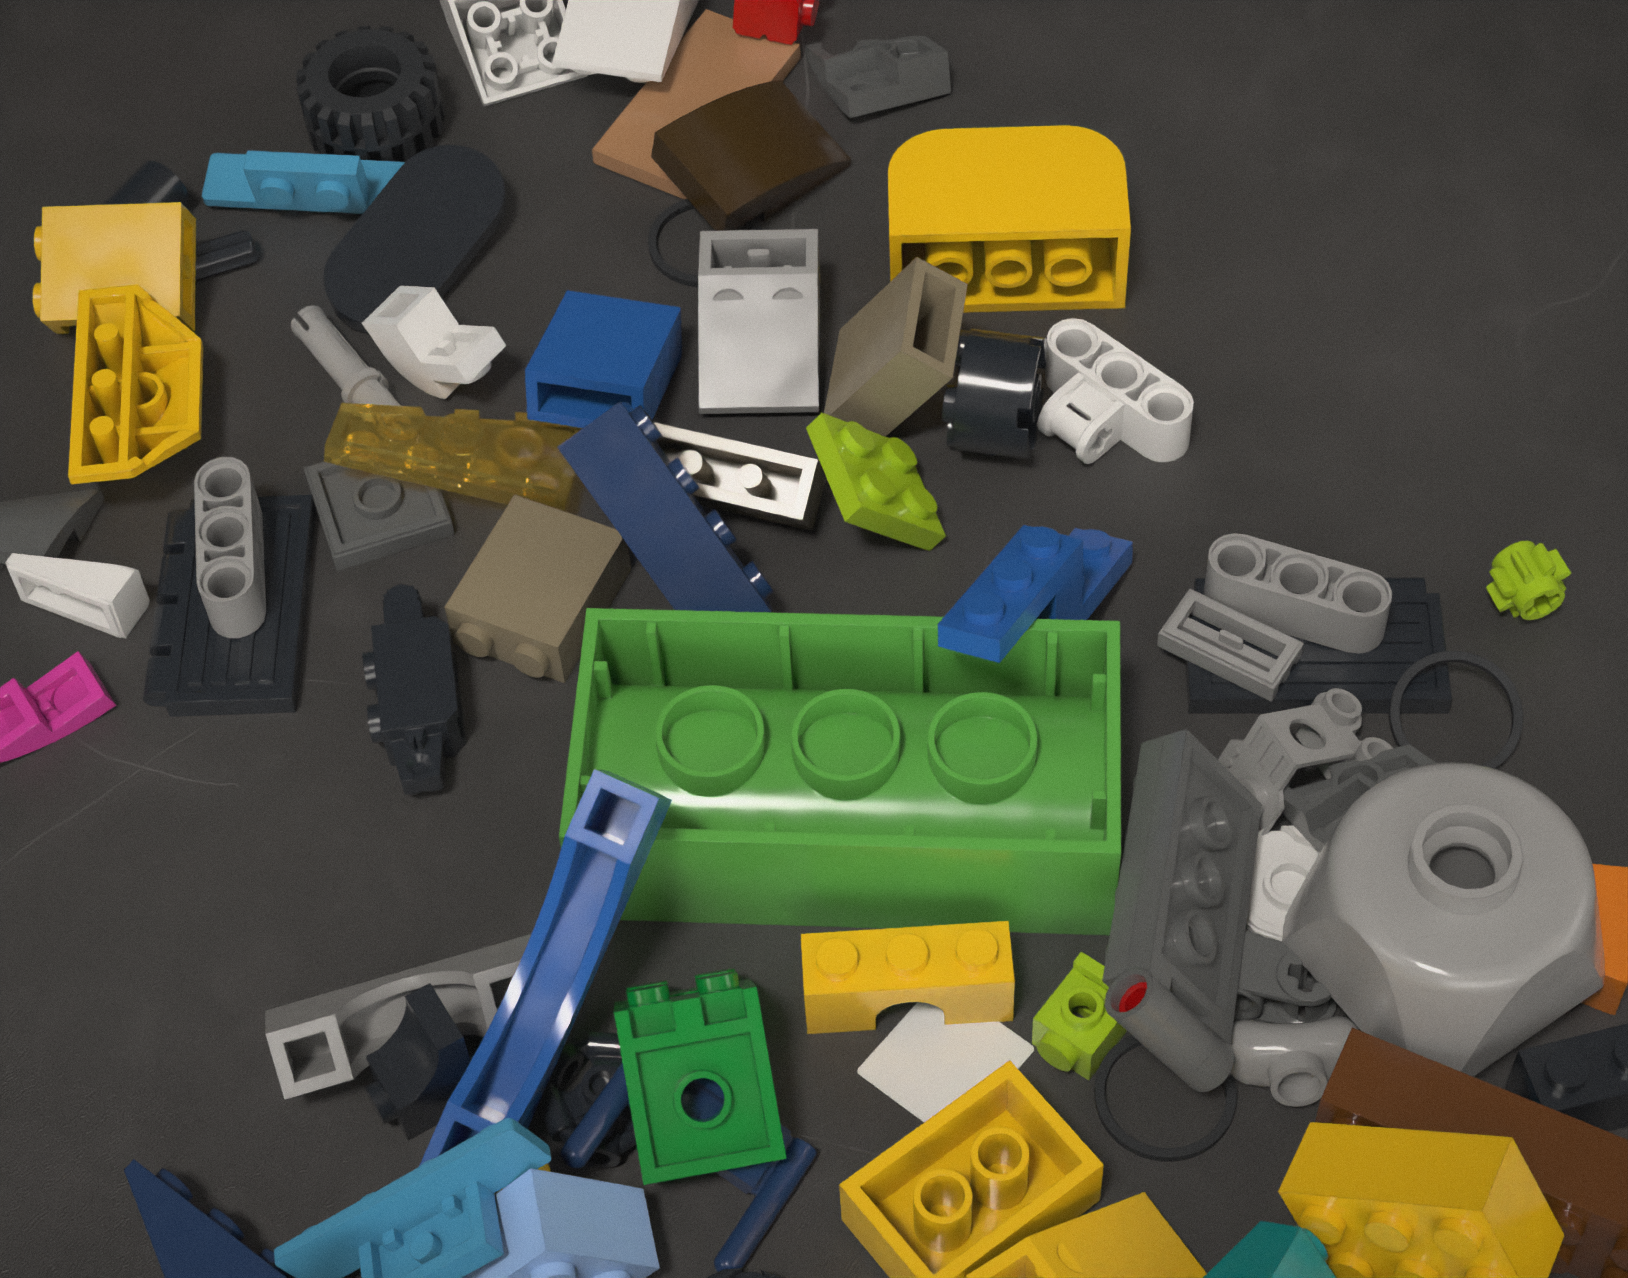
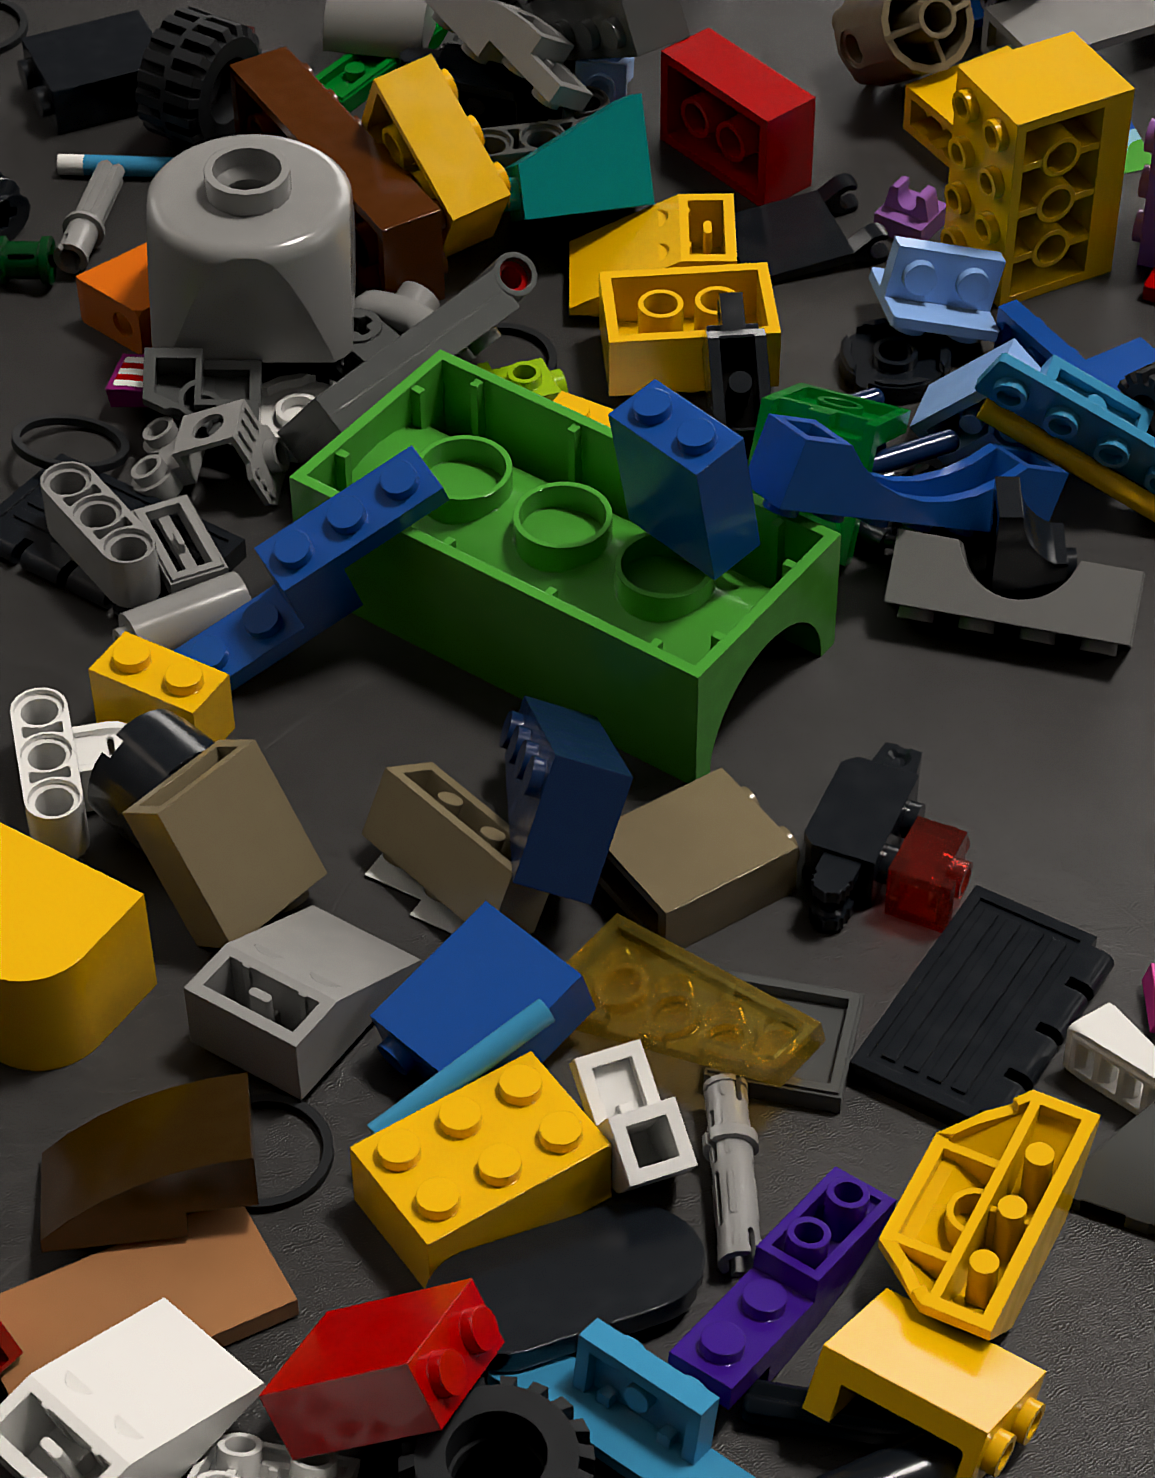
camera: 150 degrees left, 10 degrees down
(229, 547) = (964, 1008): light grey beam -> none
(262, 301) = (788, 1290): none -> dark purple slope
(332, 678) = (928, 874): none -> clear red brick
(473, 81) = (382, 1370): none -> red brick
(524, 257) = (481, 1166): none -> yellow brick
(572, 287) = (470, 1064): none -> dark azure bar
(701, 710) = (685, 478): none -> blue brick
(841, 1093) = (735, 368): none -> black hinge
(876, 482) = (344, 768): lime plate -> none
(1095, 488) = (145, 677): none -> yellow brick
(1154, 580) = (185, 613): none -> light grey brick

